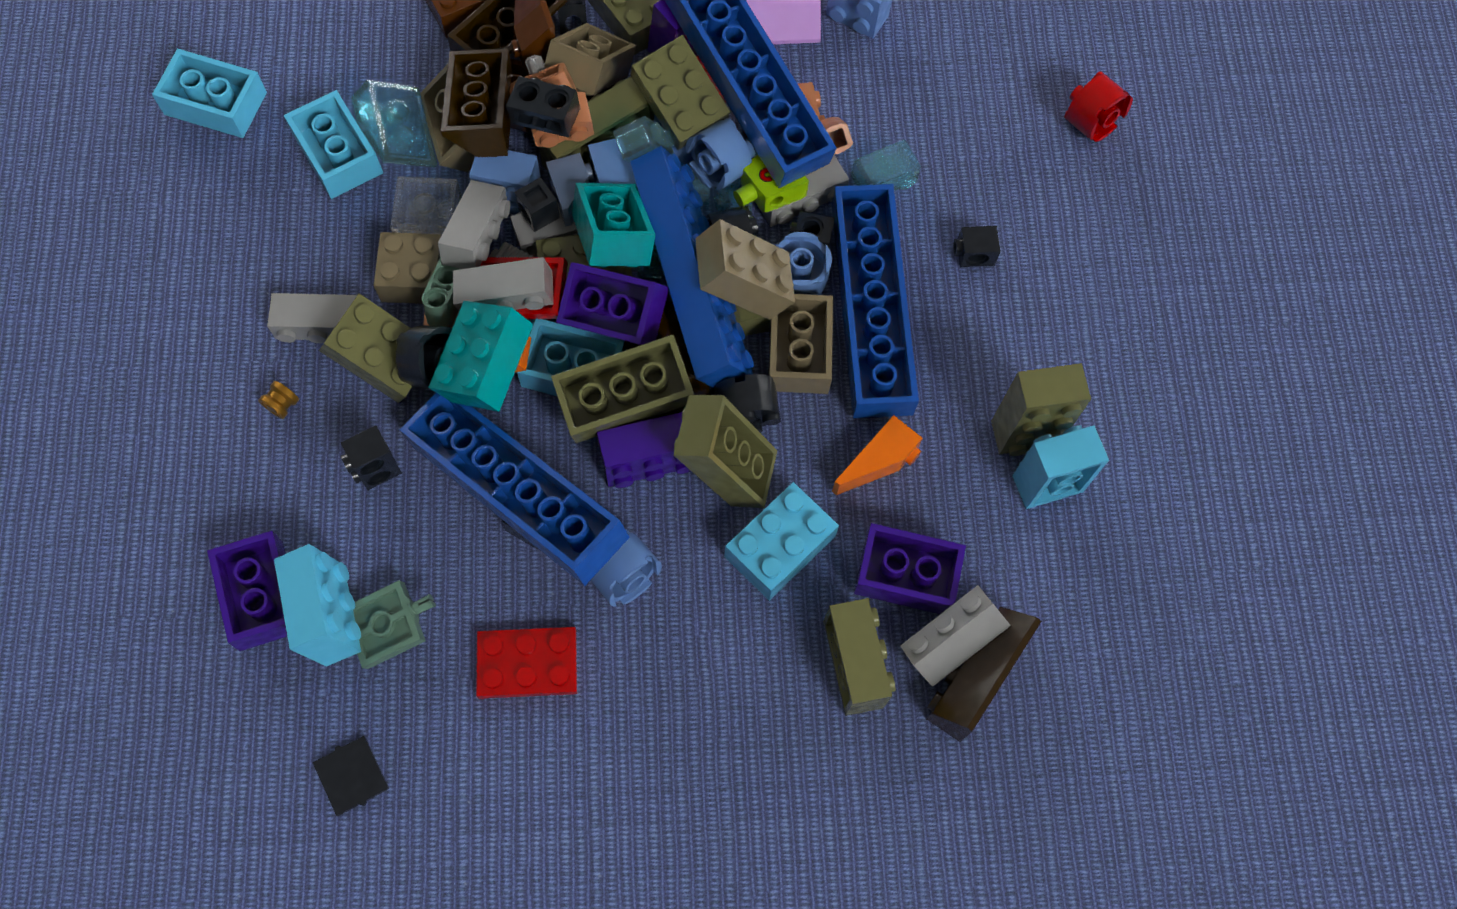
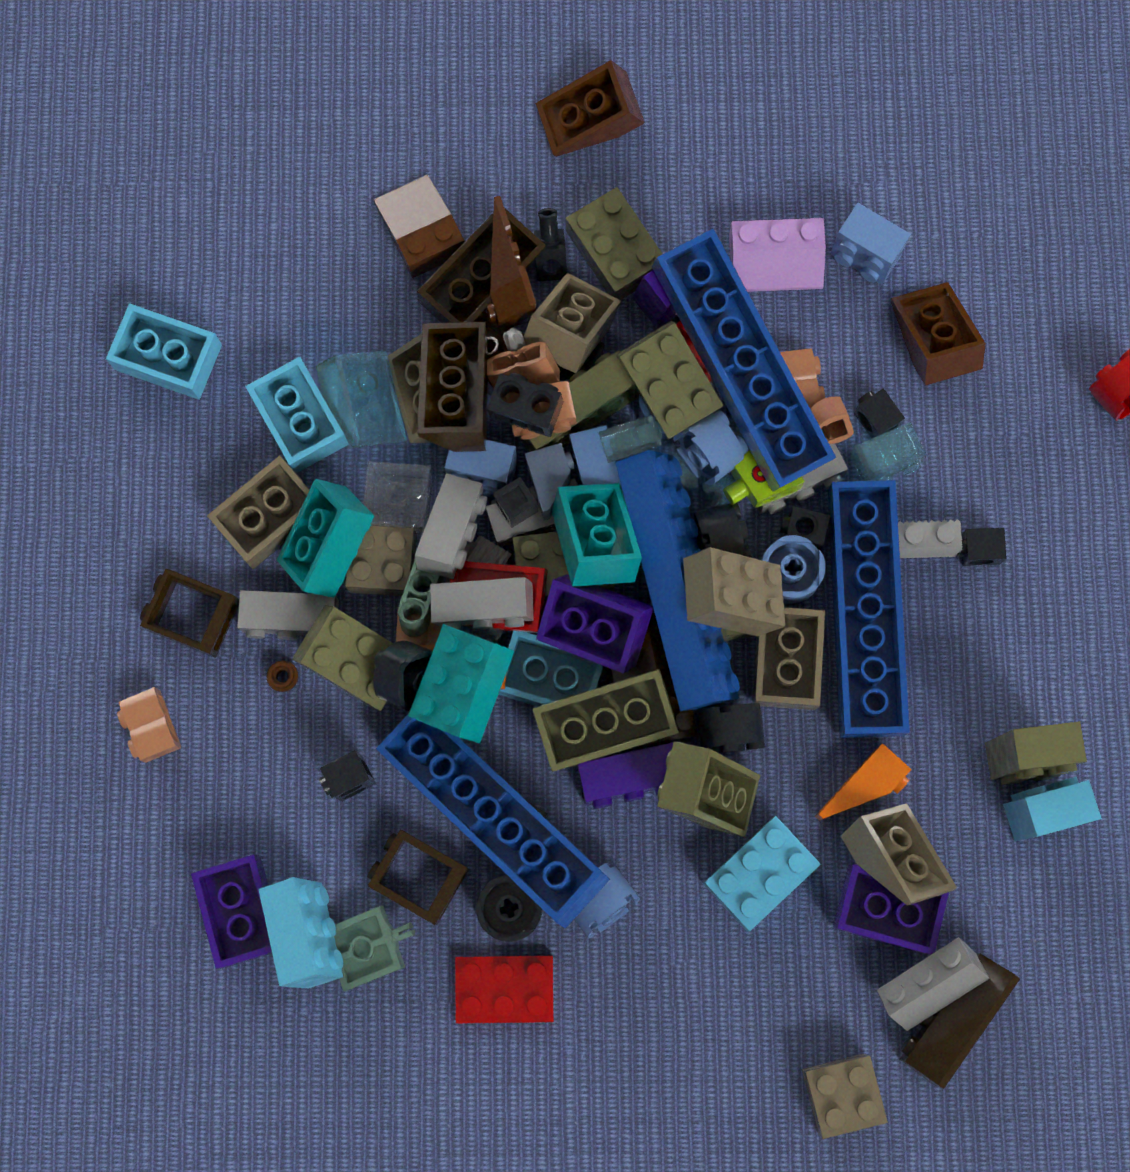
camera: 10 degrees right, 10 degrees up
(175, 421) = (148, 725): none -> nougat brick
(246, 334) = (219, 623): none -> dark brown window
(278, 399) = (250, 705): pearl gold wheel -> none
(300, 226) = (261, 512): none -> dark tan brick
(307, 368) = (275, 669): none -> reddish brown plate
(350, 775) = (335, 1096): black piece -> none
(354, 241) = (325, 538): none -> teal brick
(468, 568) = (446, 892): none -> dark brown window
(513, 581) = (501, 925): none -> black brick
(858, 656) = (835, 1002): olive brick -> none
(872, 752) = (844, 1096): none -> dark tan brick
(874, 134) = (878, 413): none -> black brick
(912, 509) = (898, 854): none -> dark tan slope
(927, 73) = (938, 333): none -> reddish brown slope
(928, 239) = (929, 539): none -> light grey brick

